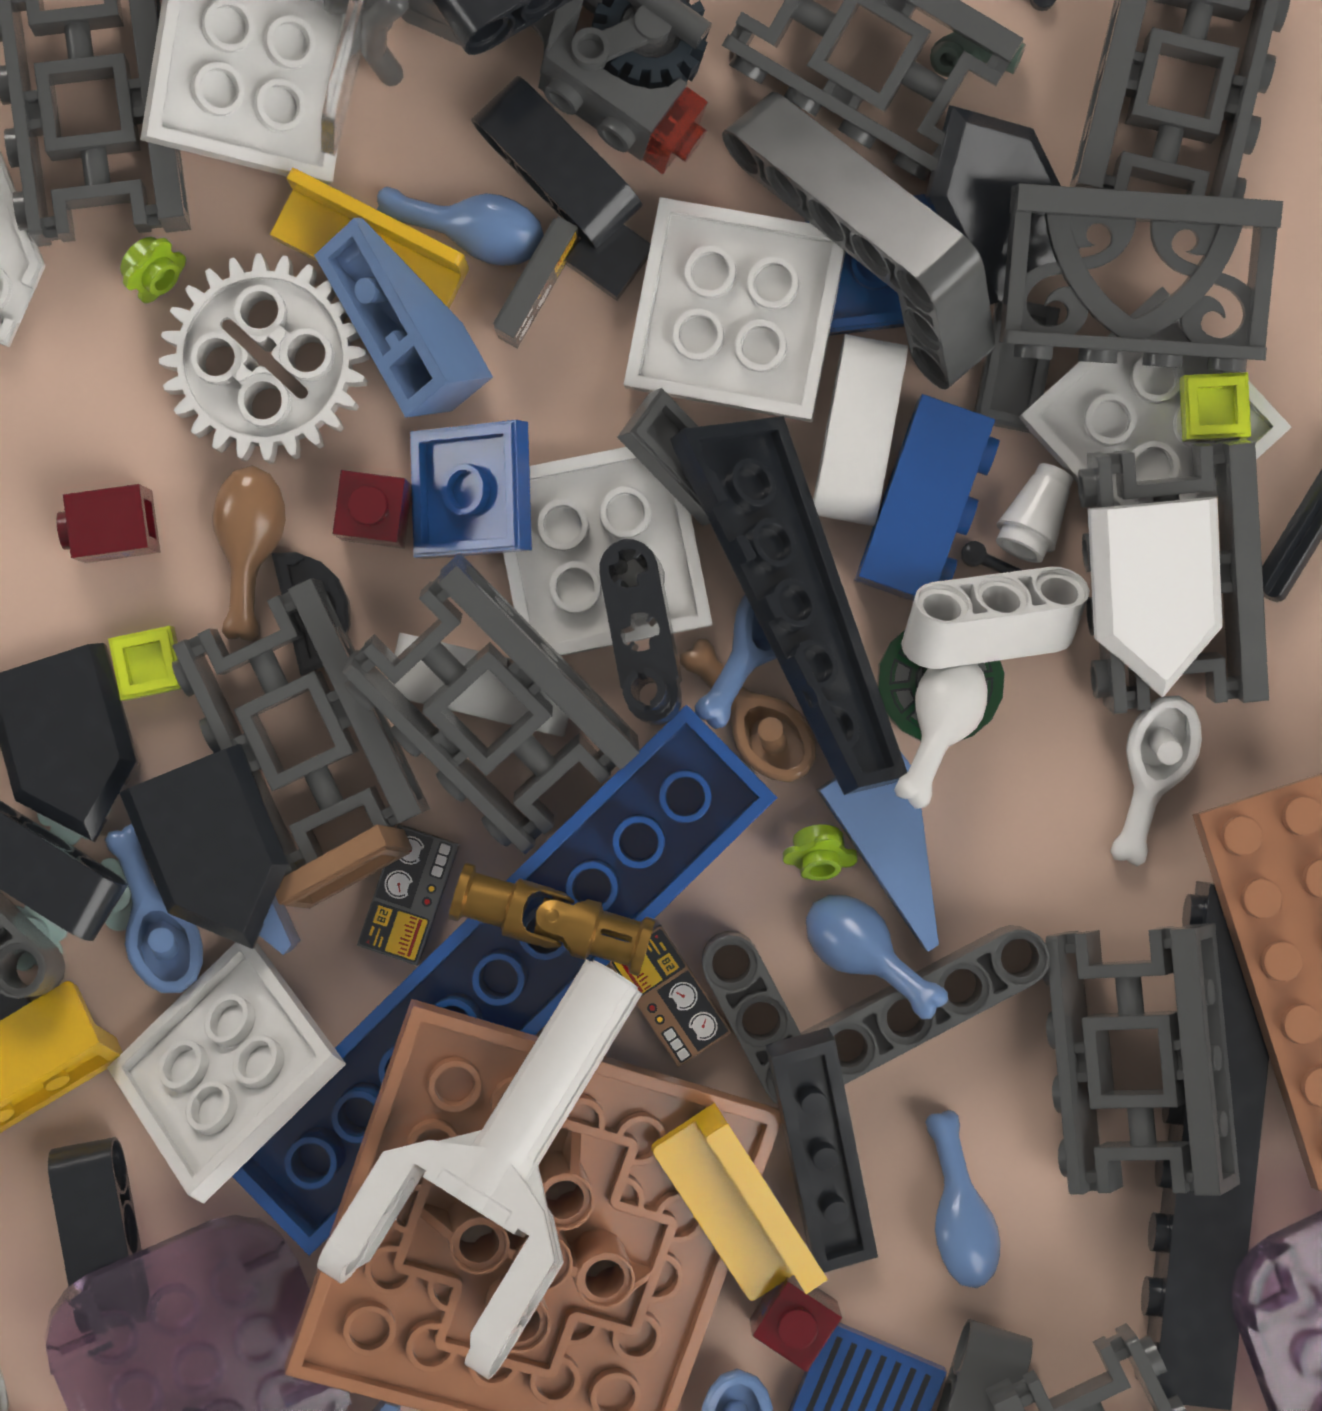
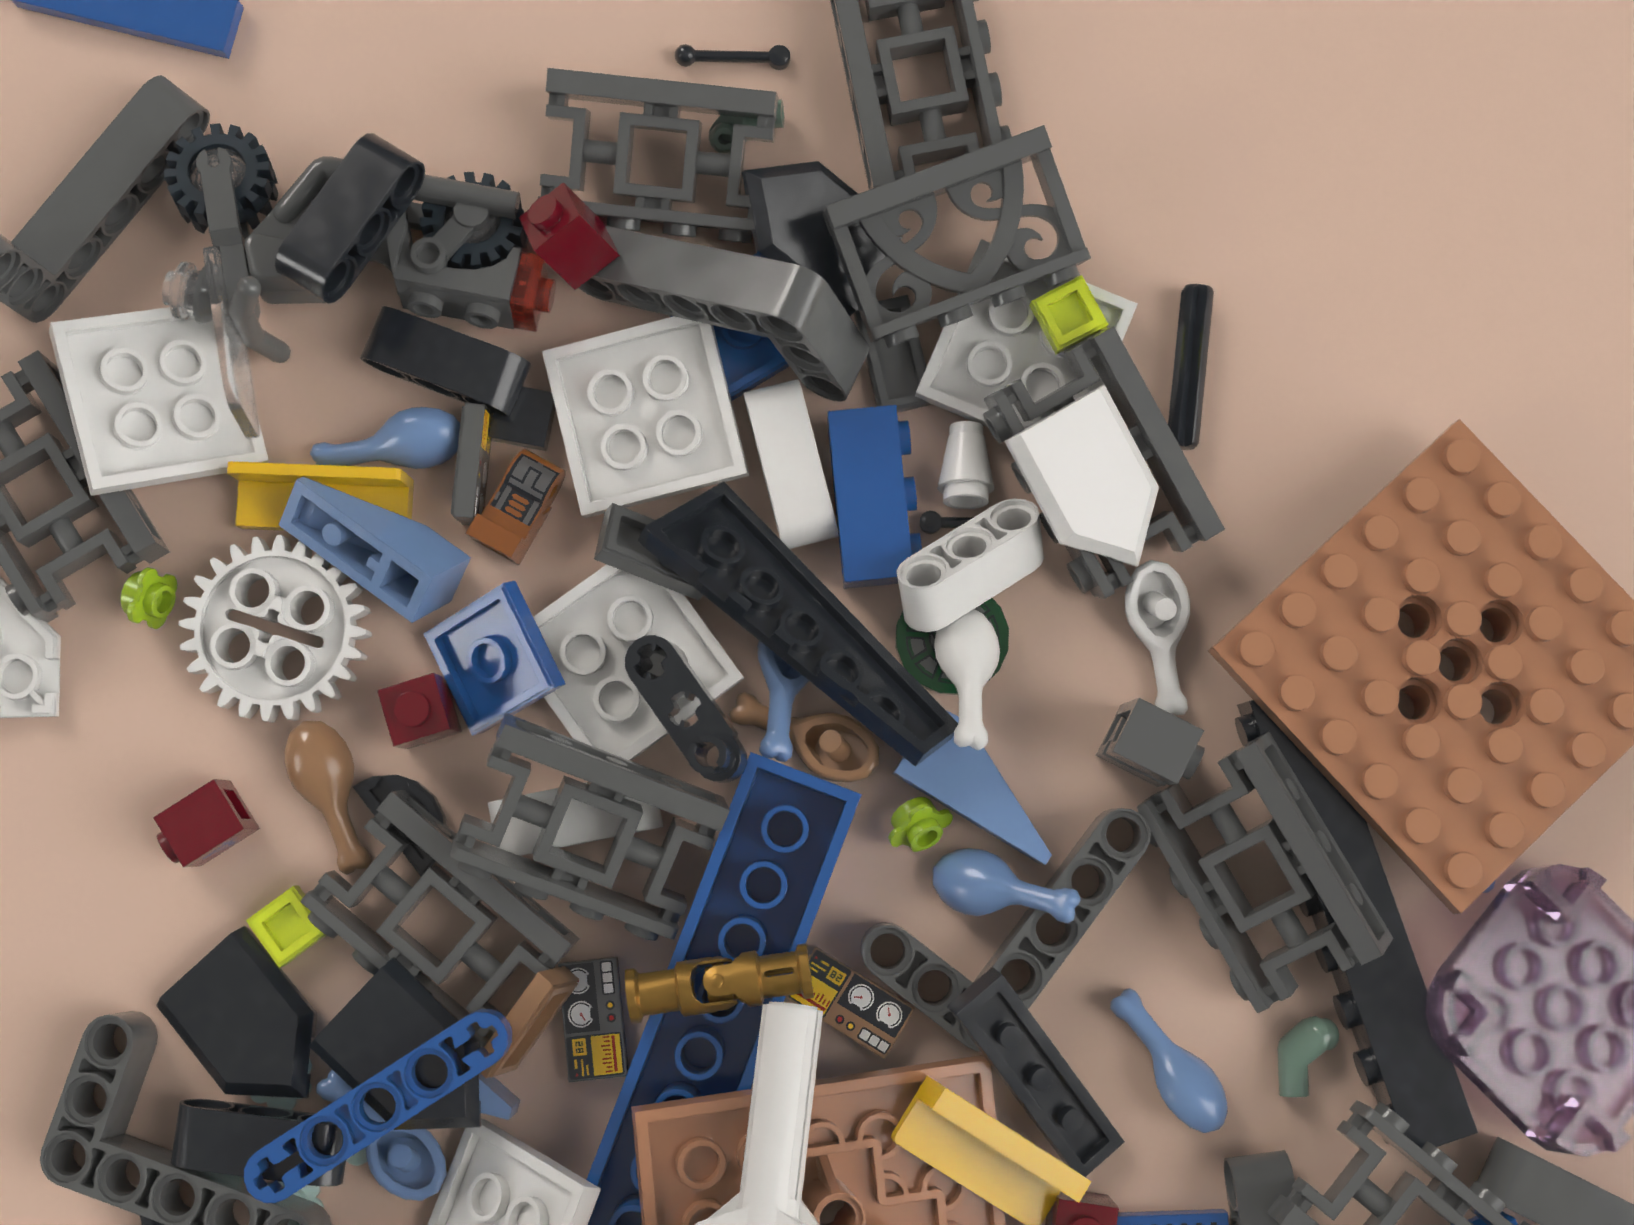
camera: 30 degrees left, 5 degrees down
(134, 893) = (352, 1119): none -> blue beam
(564, 345) = (518, 506): none -> dark orange leg
(741, 92) = (568, 236): none -> dark red brick
(1091, 881) = (1152, 744): none -> dark grey brick
(1094, 1248) = (1300, 1048): none -> sand green arm

